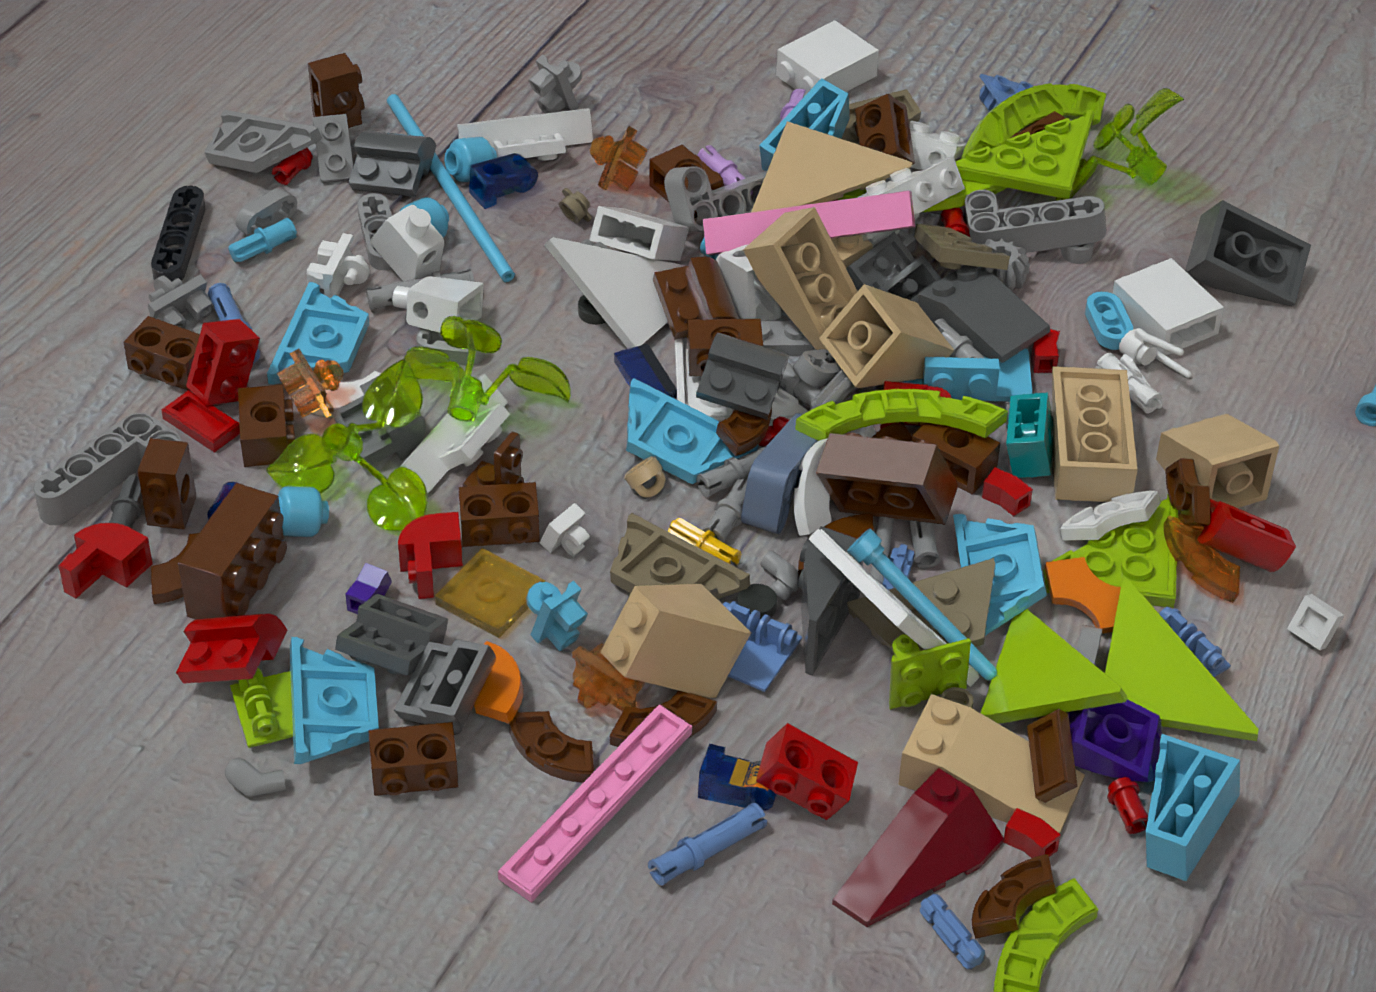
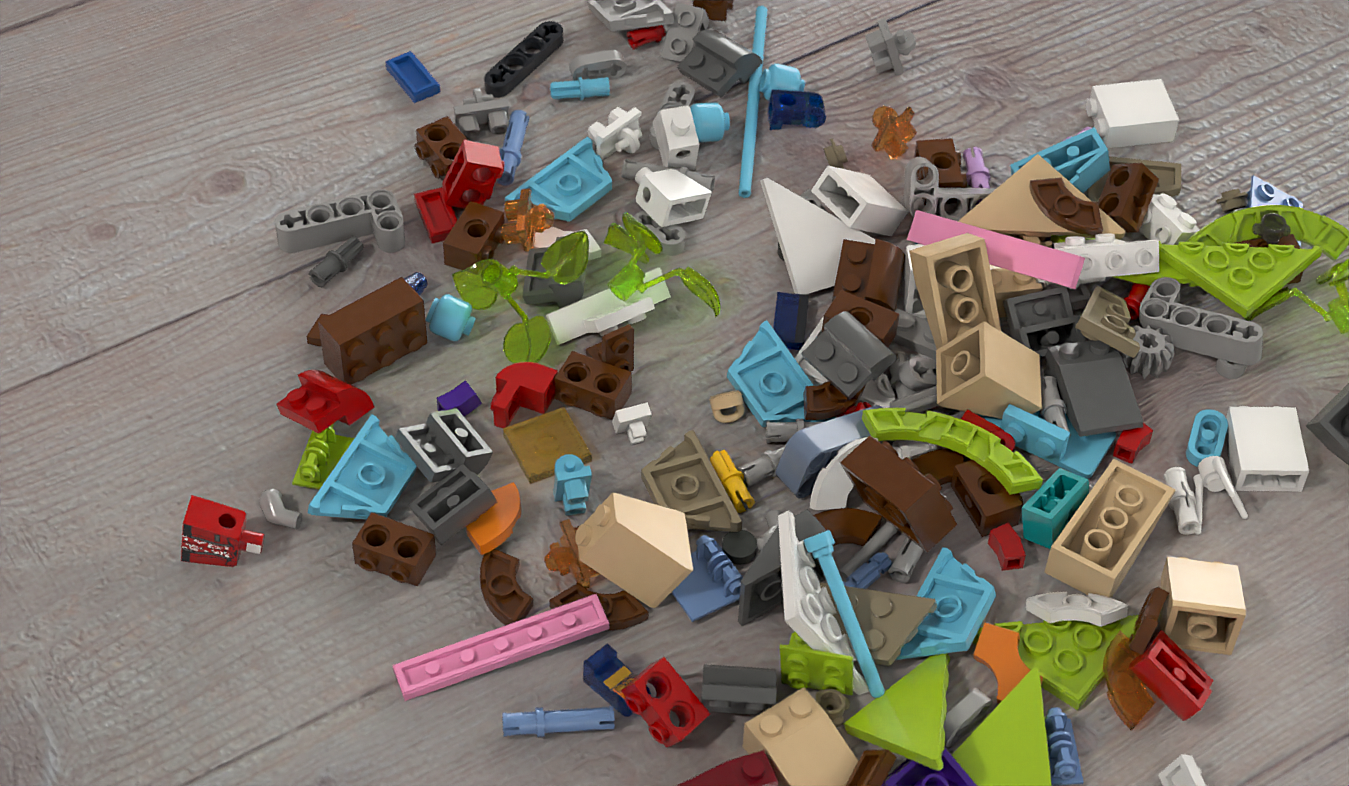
camera: 30 degrees right, 5 degrees up
(67, 297) = (412, 76): none -> blue tile
(106, 551) = (294, 287): red brick -> none
(167, 483) = (368, 255): reddish brown brick -> none
(211, 829) = (216, 534): none -> red torso
(533, 135) = (844, 83): white bracket -> none
(846, 161) = (1064, 208): none -> reddish brown tile
(866, 727) = (738, 689): none -> dark grey brick
(973, 105) = (1232, 200): none -> dark tan plate
(1037, 111) = (1271, 228): none -> clear smoke plate

